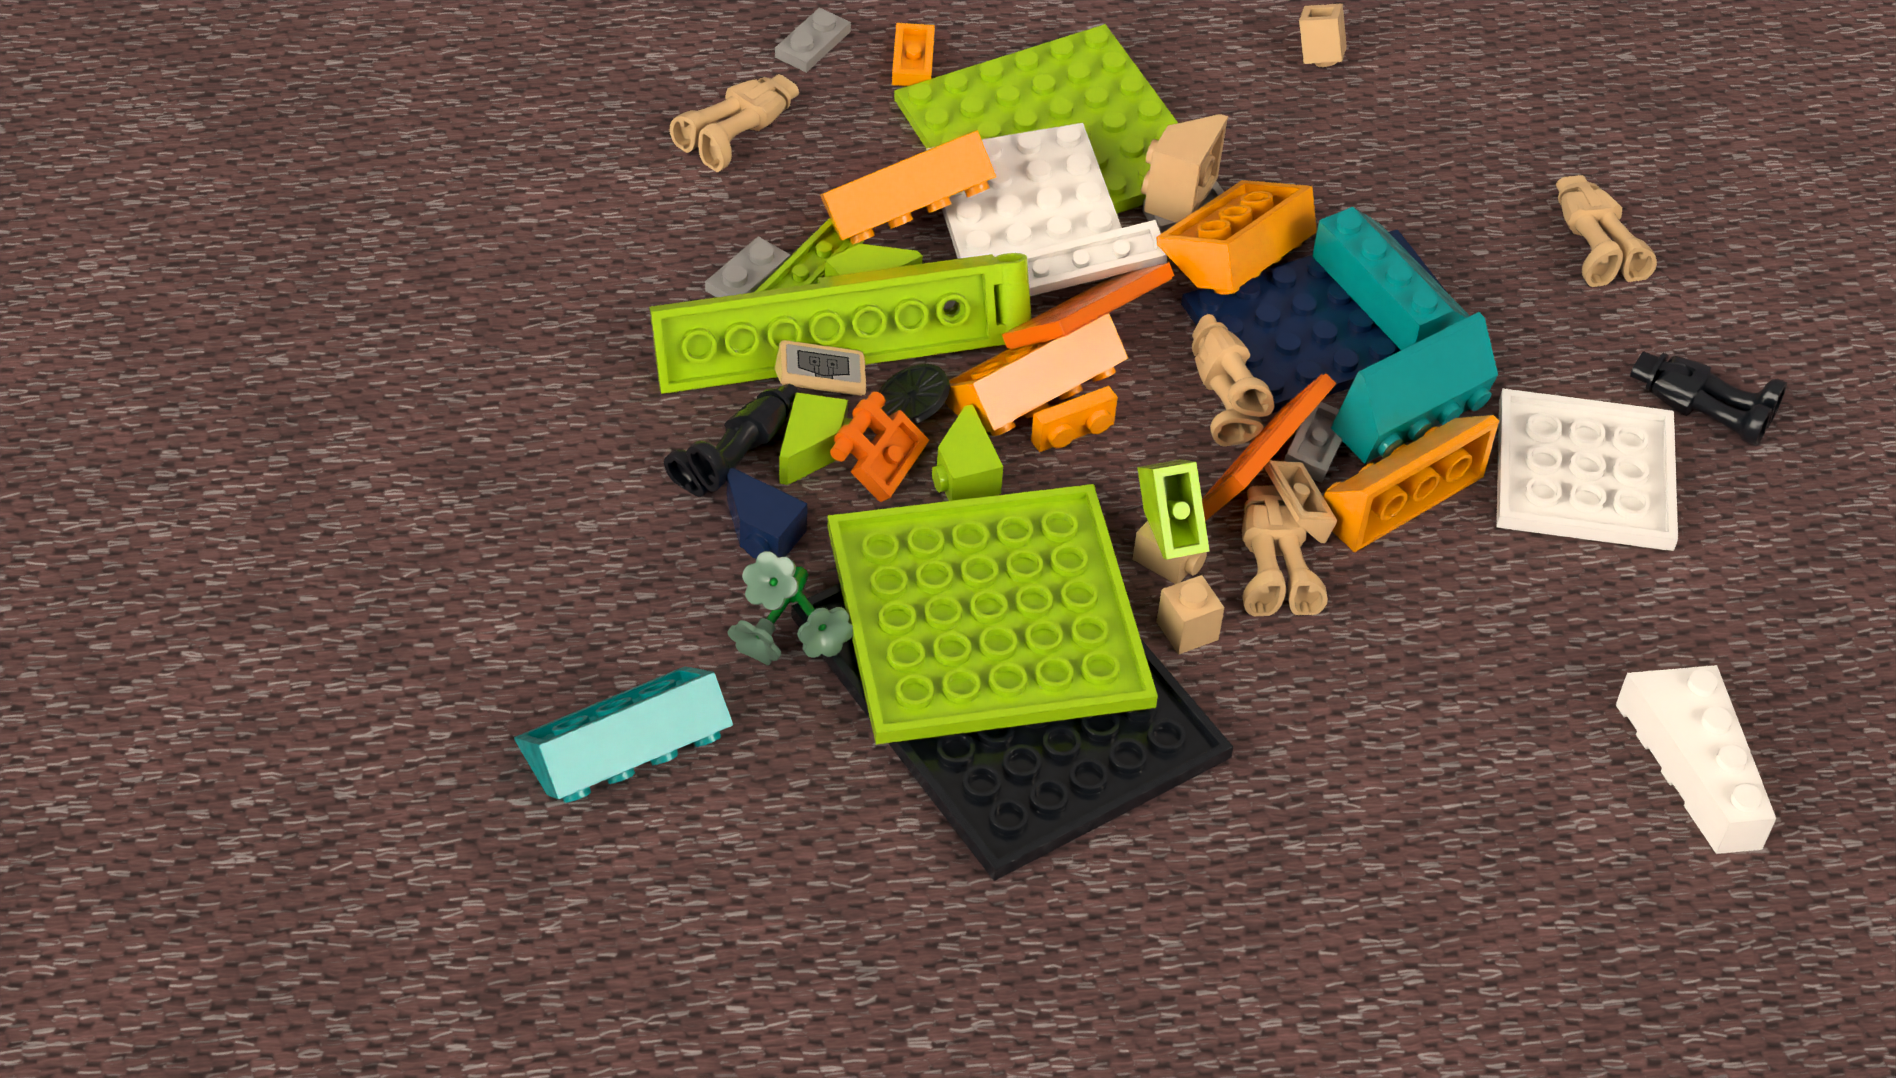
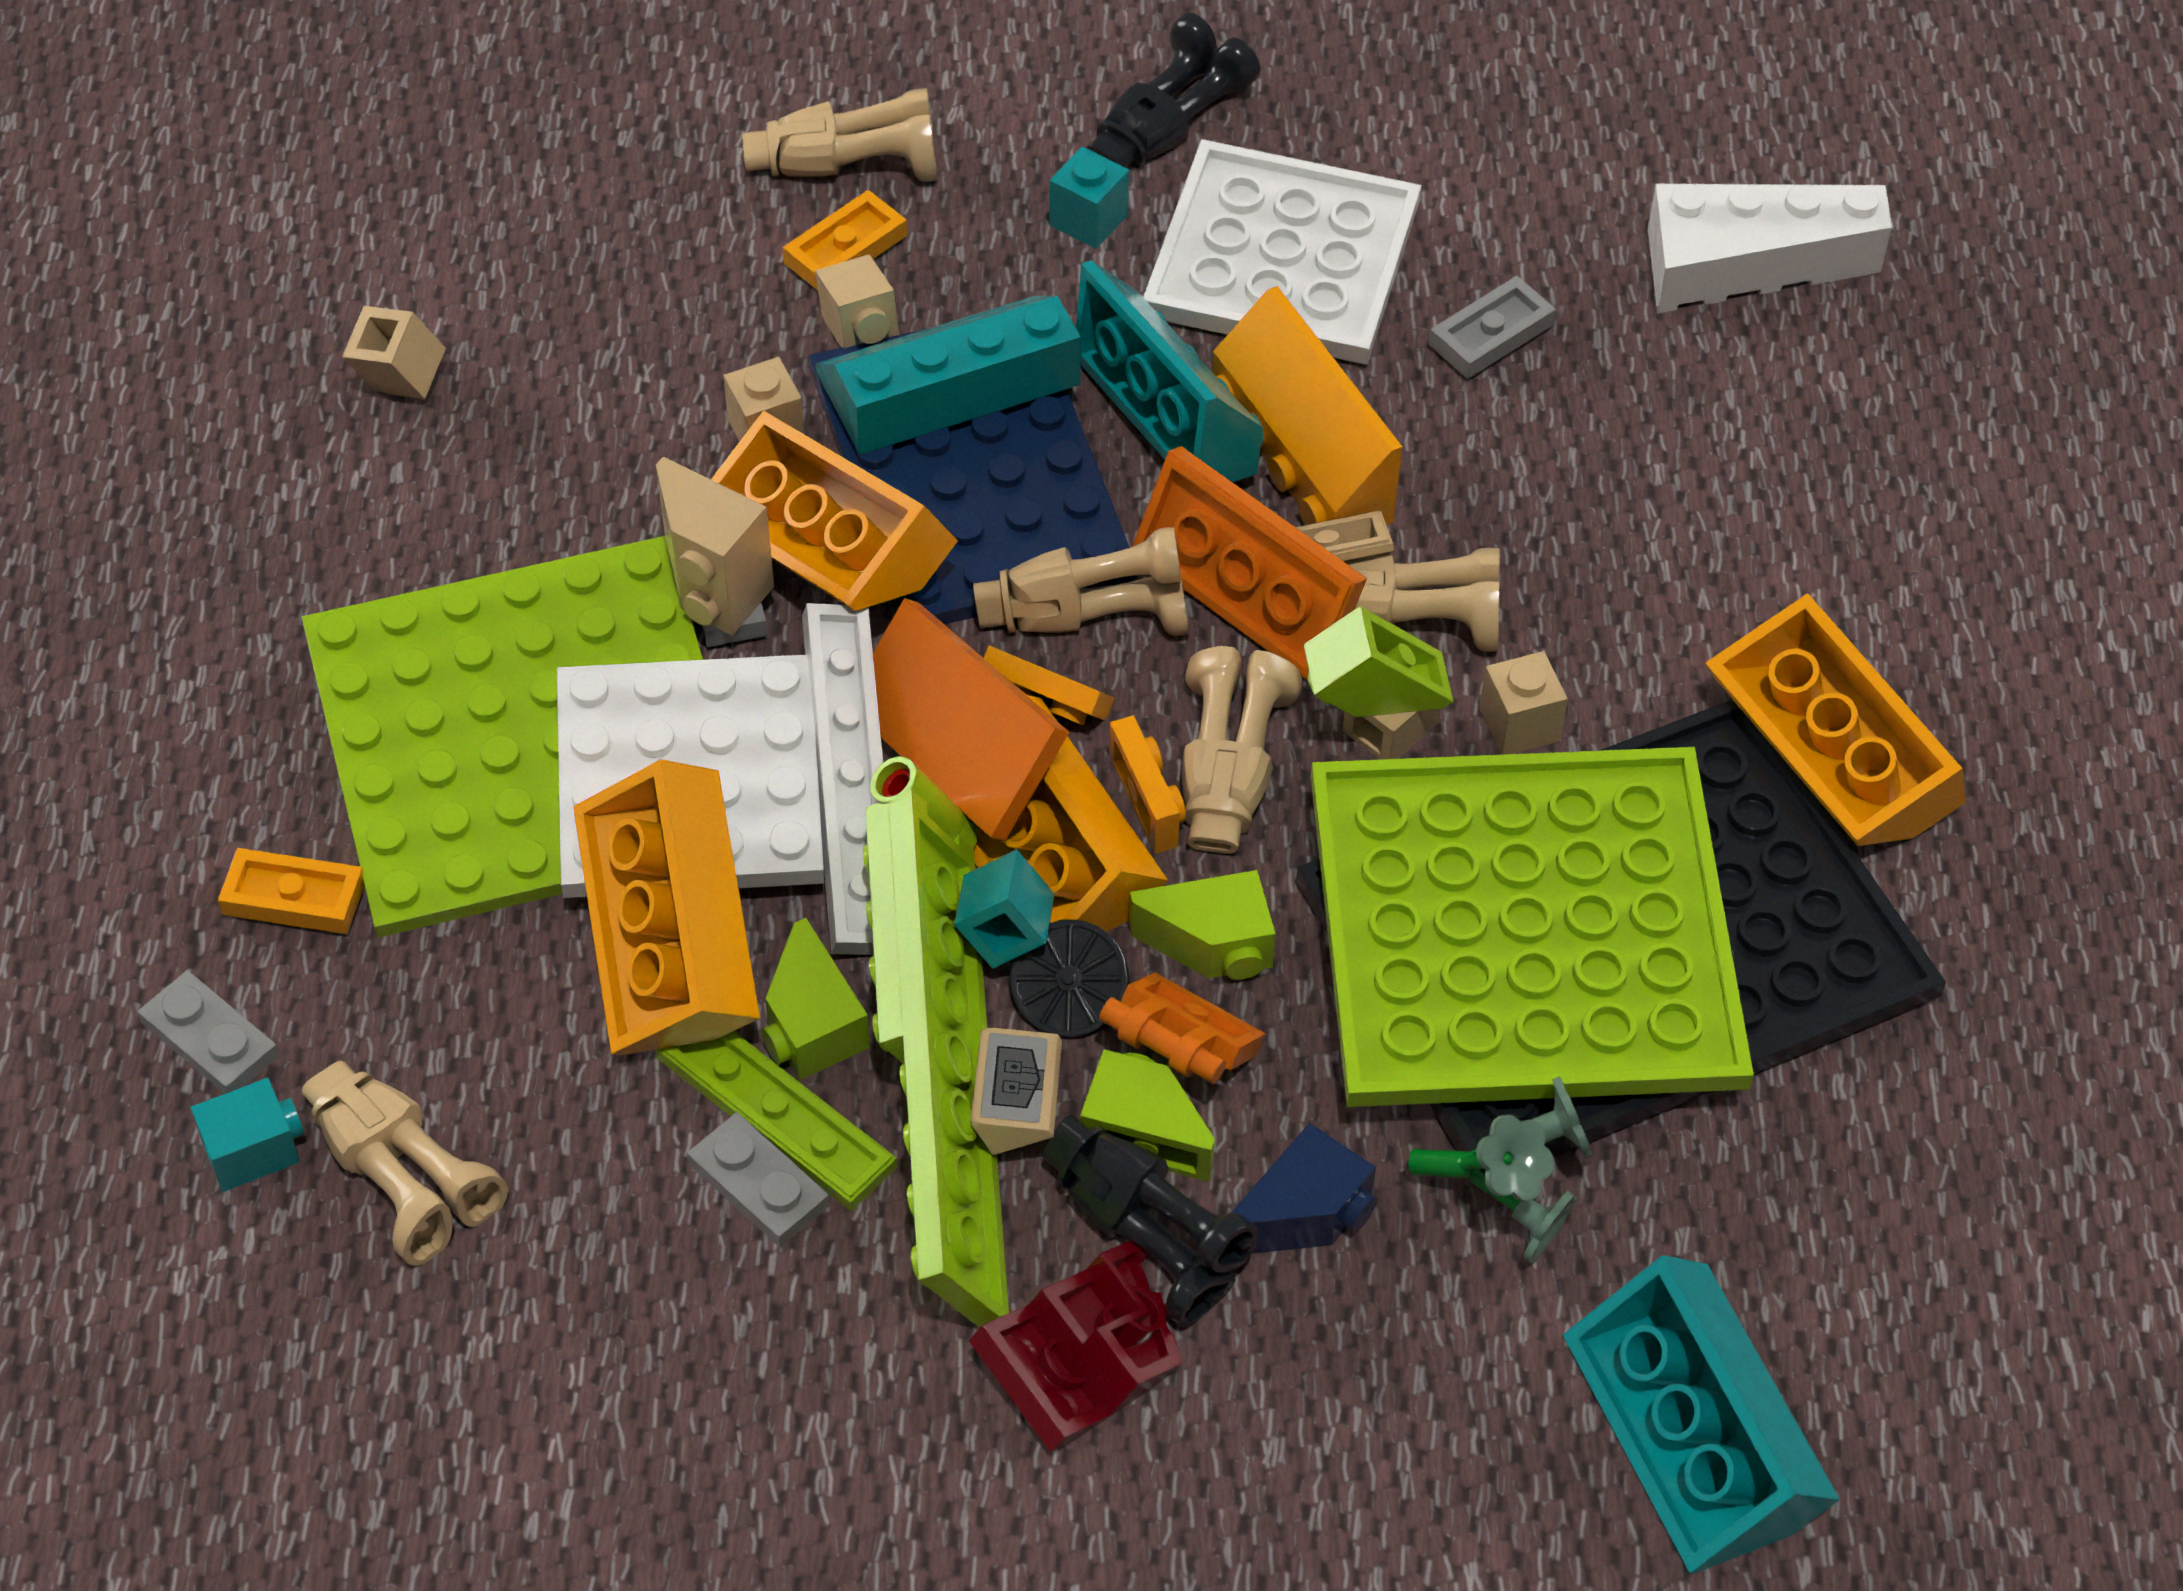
camera: 80 degrees left, 5 degrees up
(642, 420) = (1082, 1347): none -> dark red slope
(740, 54) = (248, 1133): none -> teal brick
(948, 345) = (1004, 909): none -> teal brick
(1098, 460) = (1226, 777): none -> tan piece
(1146, 365) = (1069, 697): none -> light orange plate
(1209, 798) = (1840, 726): none -> light orange slope
(1336, 195) = (762, 388): none -> tan brick
(1445, 242) = (857, 302): none -> tan brick
(1506, 238) = (851, 232): none -> light orange plate
(1554, 593) = (1492, 327): none -> light grey plate
(1589, 352) = (1088, 197): none -> teal brick

